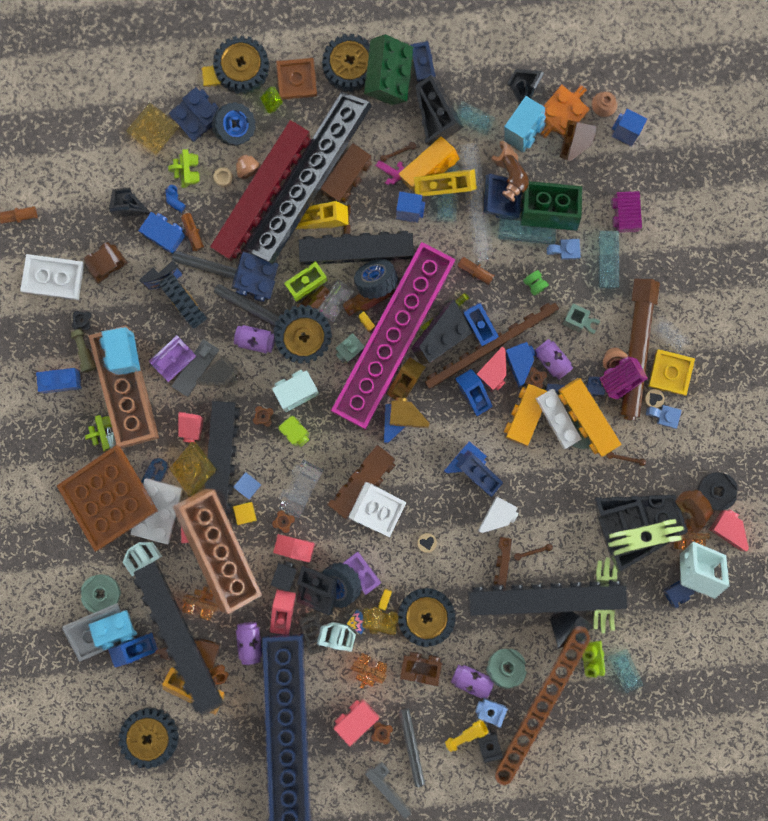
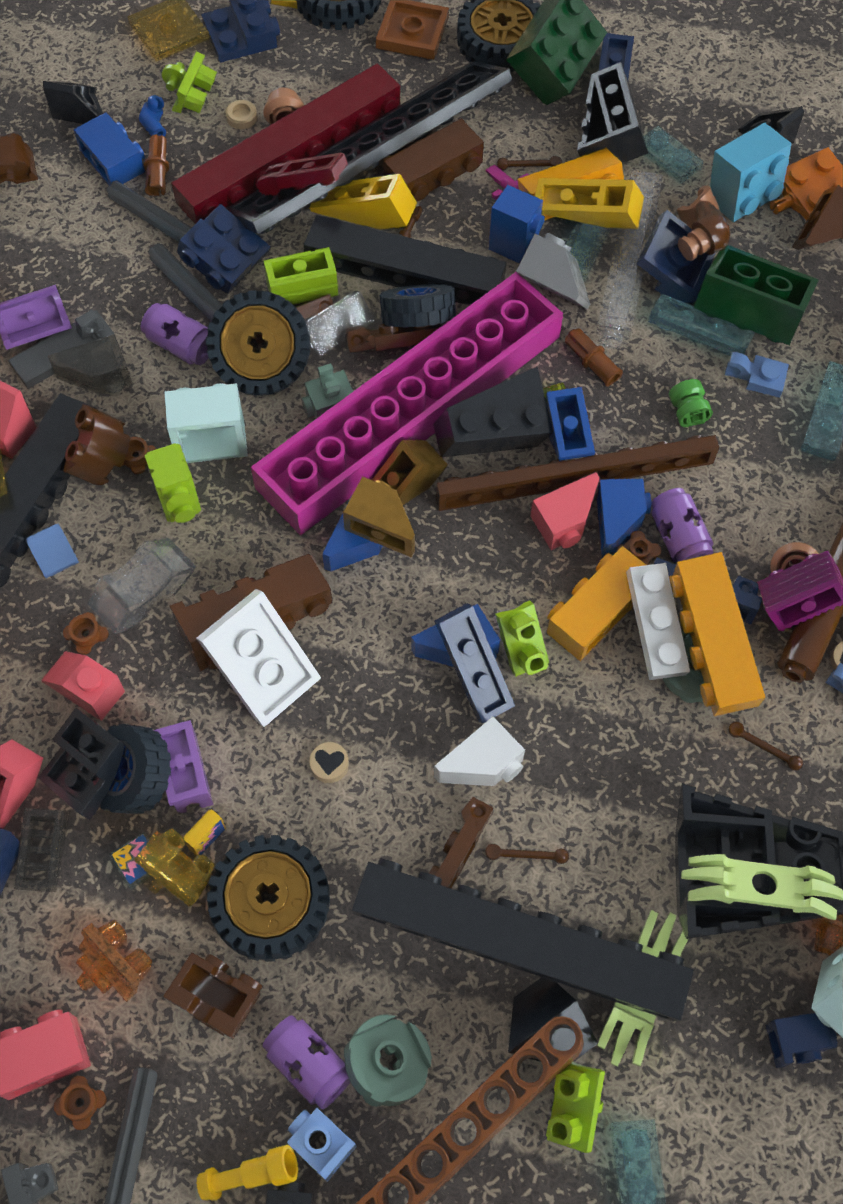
camera: 20 degrees right, 20 degrees down
(152, 277) = (74, 197): black slope -> none
(182, 301) = (87, 232): black wheel -> none
(223, 126) = (283, 61): black wheel -> none
(244, 513) = (25, 596): yellow tile -> none
(247, 421) = (98, 447): none -> reddish brown cylinder
(271, 99) = (362, 40): clear neon green tile -> none
(283, 219) = (301, 173): none -> dark red hinge
(284, 575) = (37, 722): black brick -> none
(336, 636) = (65, 878): light aqua piece -> none
(367, 323) = (373, 361): yellow tile -> none
(442, 232) = (554, 269): none -> light grey slope
(474, 392) = (518, 535): blue slope -> none
(497, 451) = (523, 639): none -> lime hips
(578, 318) = (747, 475): sand green brick -> none

